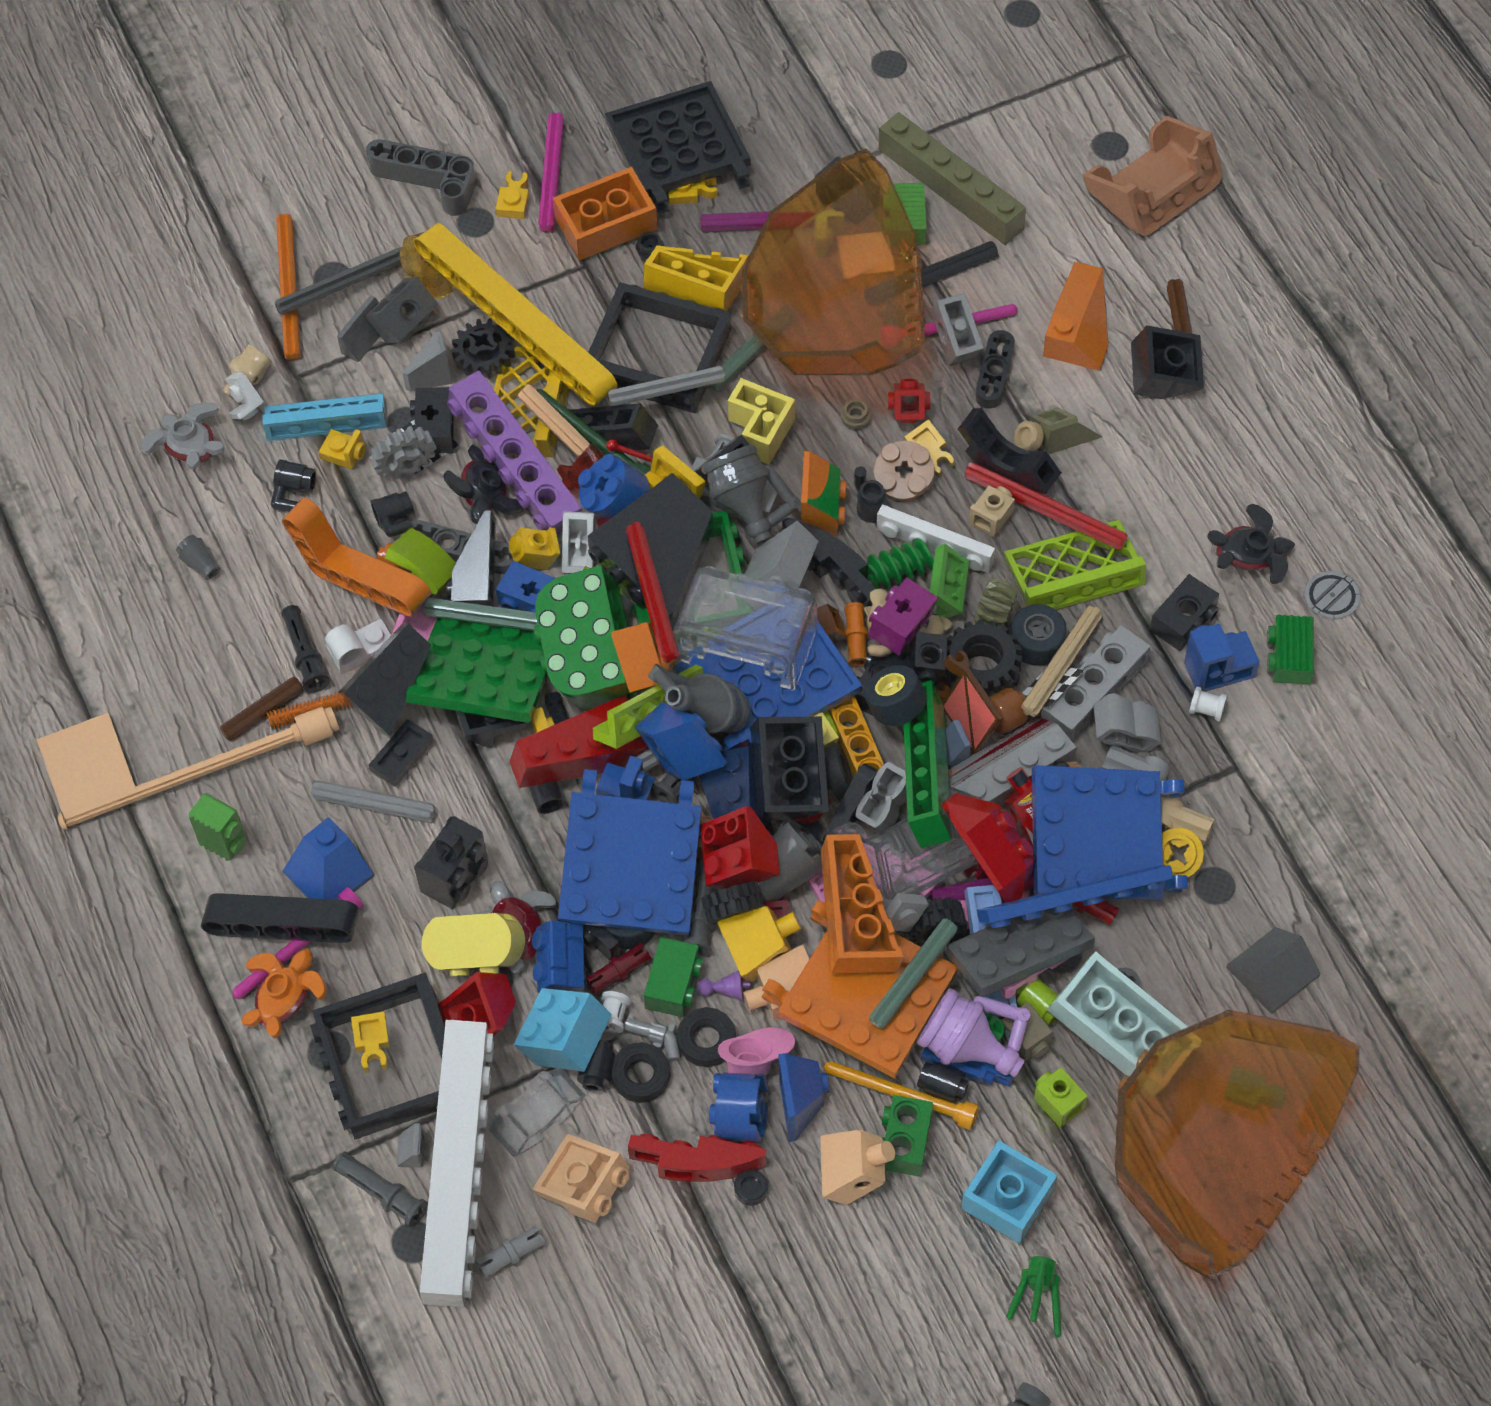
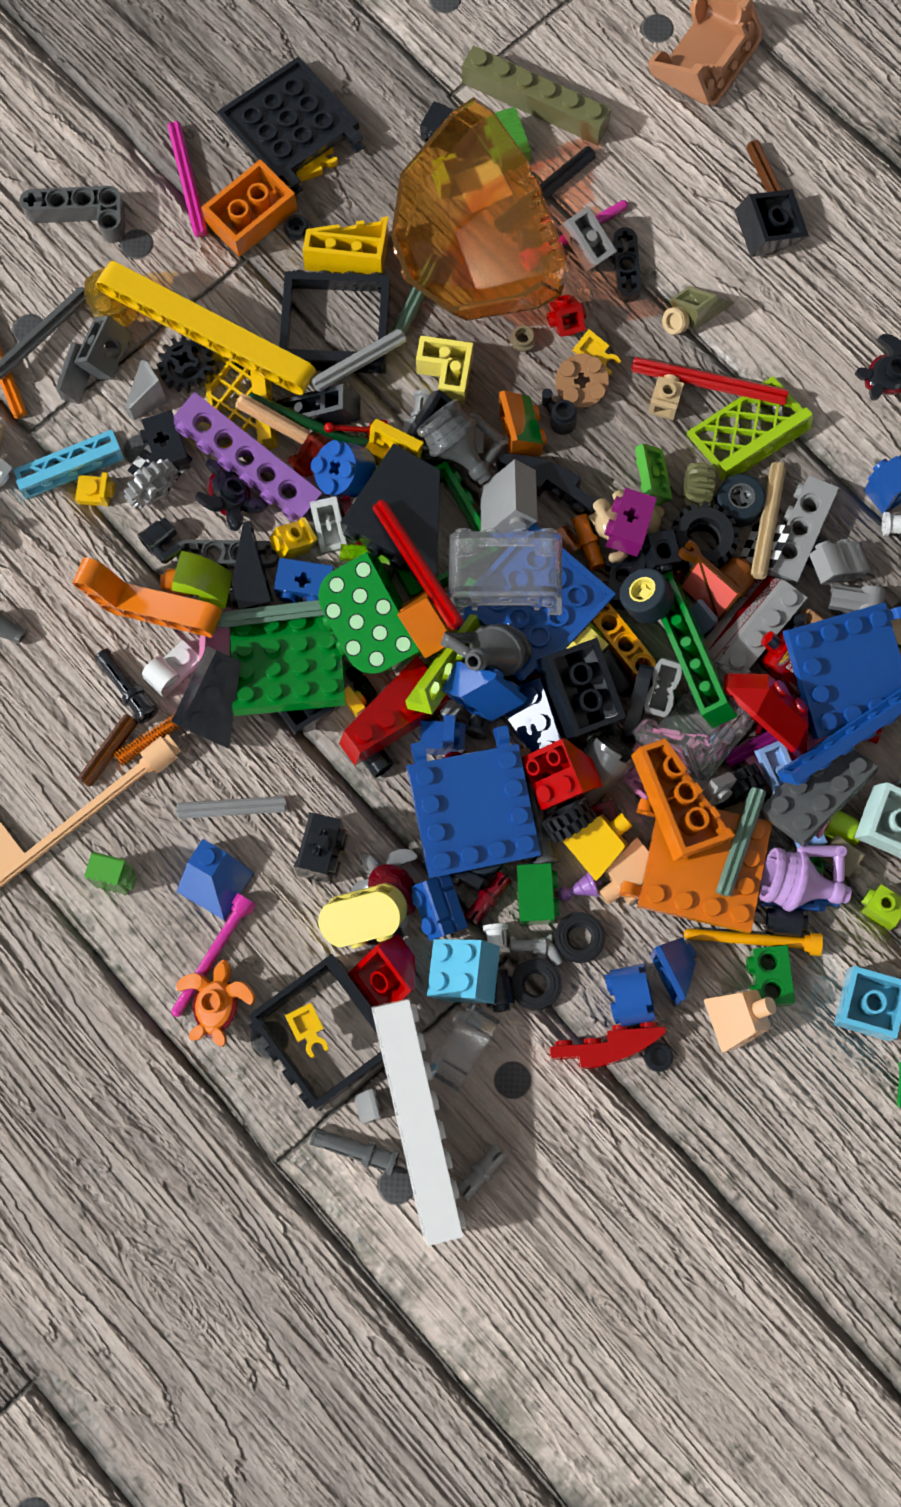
camera: 15 degrees left, 15 degrees up
(280, 918) = (191, 939): black beam -> none
(293, 478) = (61, 530): black piece -> none
(401, 752) = (241, 757): black plate -> none
(514, 198) = (162, 212): yellow plate -> none
(583, 1178) = (520, 1092): light nougat plate -> none
(733, 221) = (368, 182): magenta axle -> none
(756, 1050) = (627, 940): bright pink piece -> none
(899, 562) = (605, 467): green piece -> none
(907, 527) = (618, 435): white plate -> none
(998, 454) = (654, 344): black arch -> none
(1079, 320) = (684, 202): orange wedge -> none
(1189, 597) = (856, 432): black brick -> none

